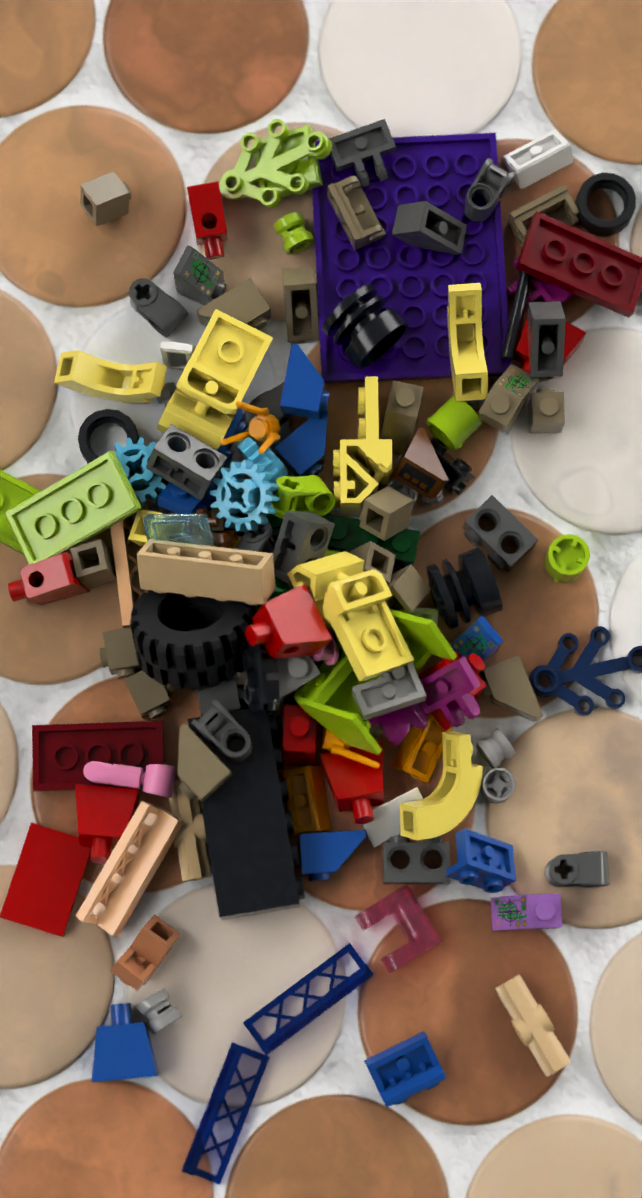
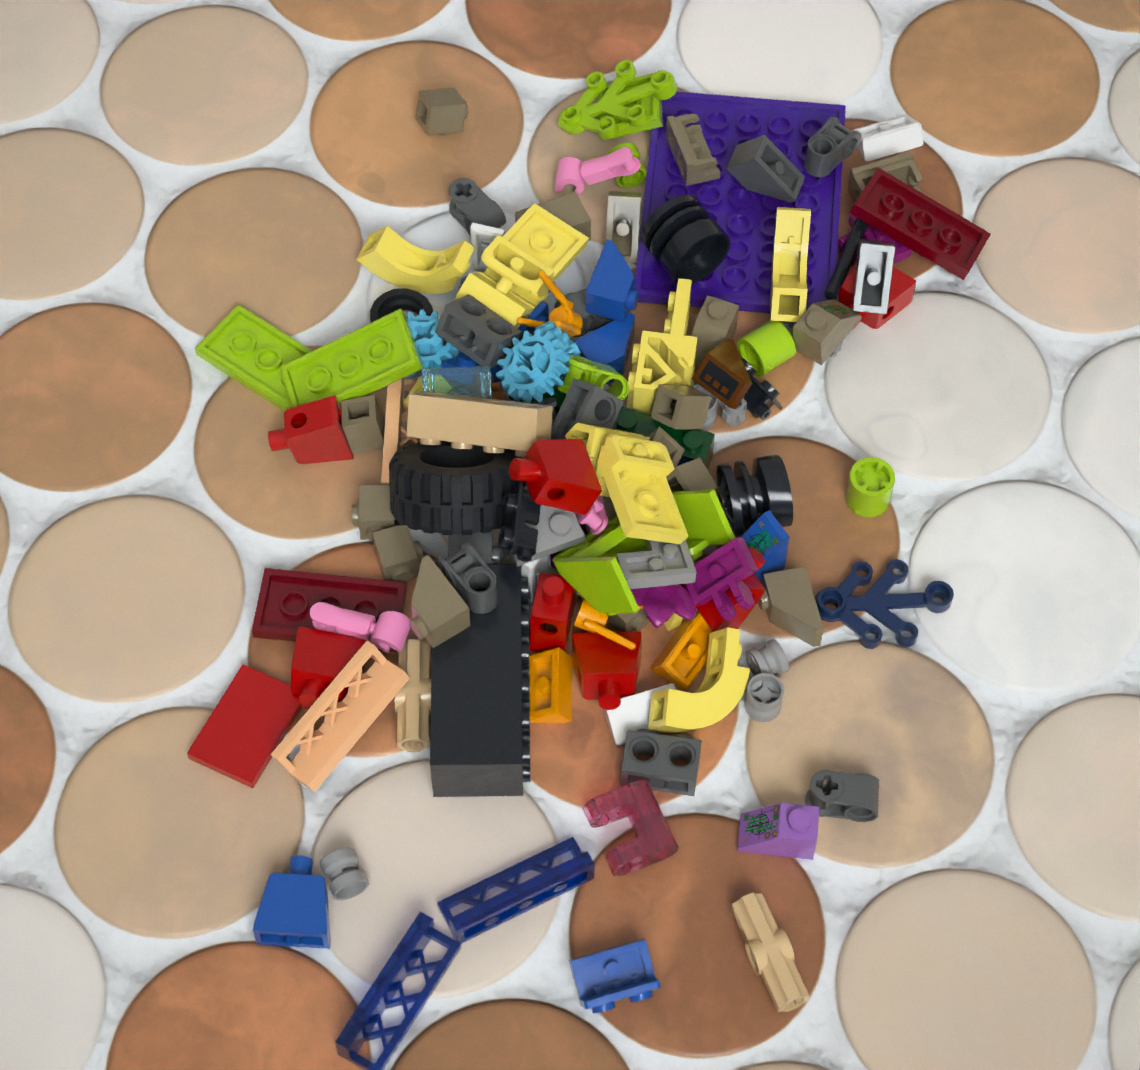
camera: 10 degrees right, 20 degrees down
(146, 953) = (343, 809): nougat brick -> none
(198, 277) = (519, 182): dark grey slope -> none
(207, 208) = (541, 136): red torso -> none
(247, 250) = (595, 170): none -> bright pink piece
(327, 852) = (565, 736): blue slope -> none
(361, 146) = (708, 95): dark grey hinge -> none
(482, 862) = (735, 768): blue bracket -> none
(506, 529) = (806, 453): dark grey brick -> none
(546, 411) = (865, 351): dark tan brick -> none
(605, 181) = (952, 161): black tyre -> none

